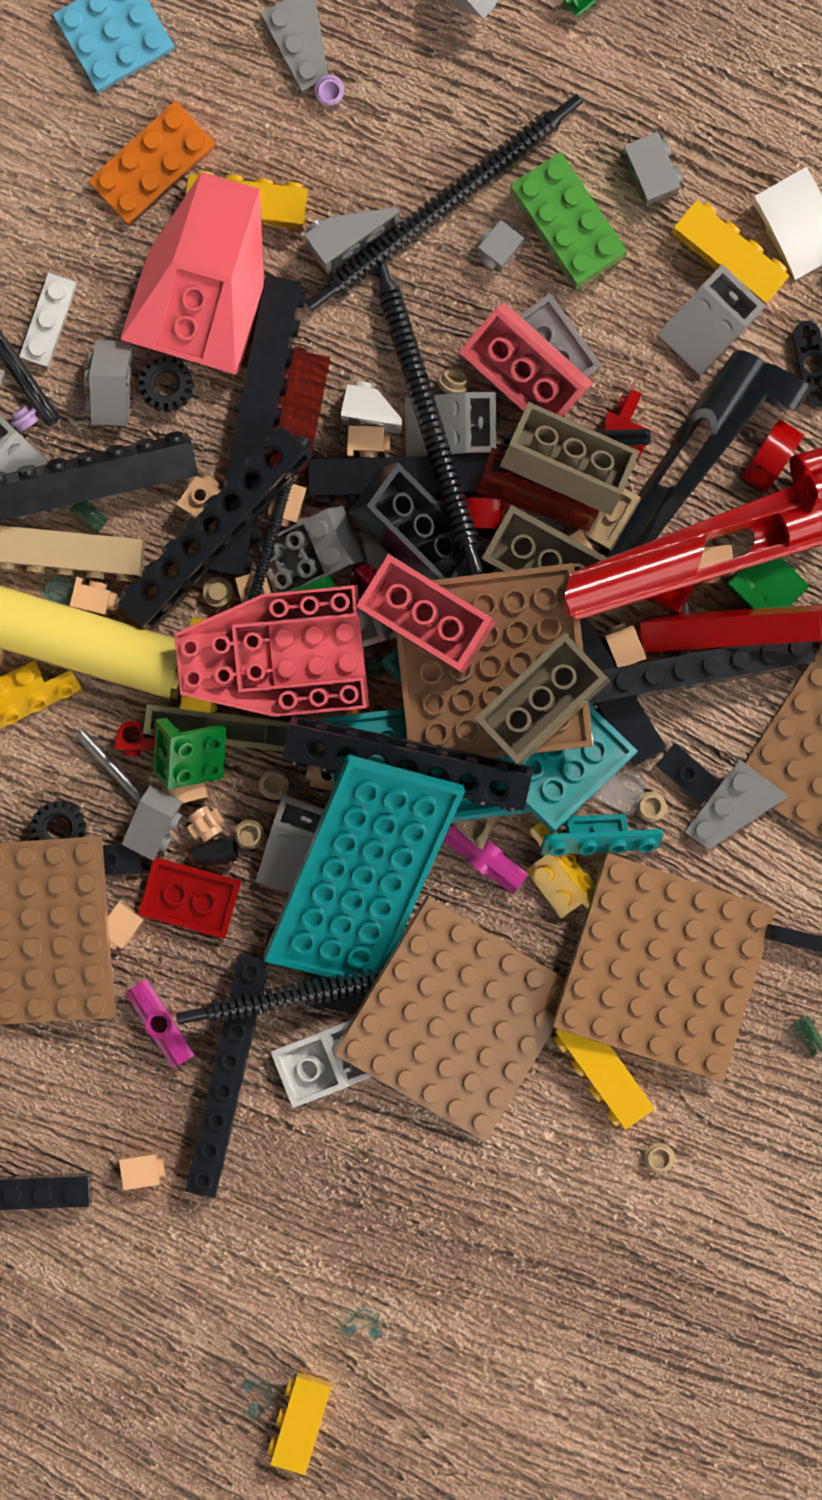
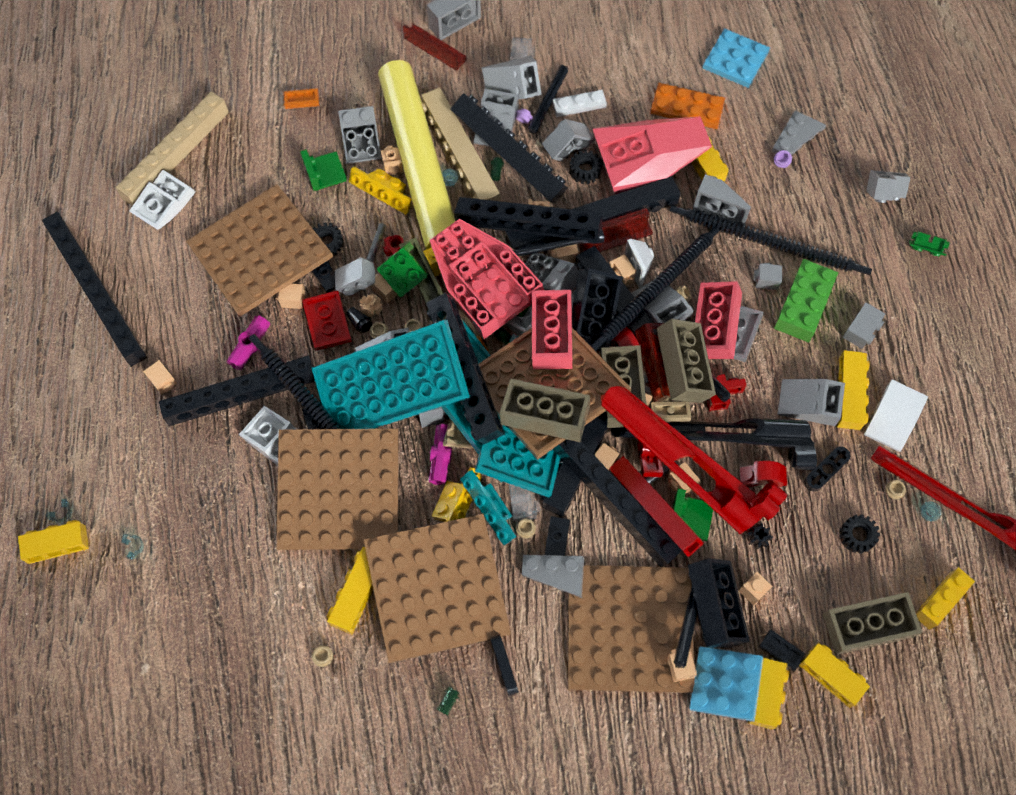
camera: 55 degrees right, 20 degrees down
(93, 597) = (455, 189): light nougat brick -> none

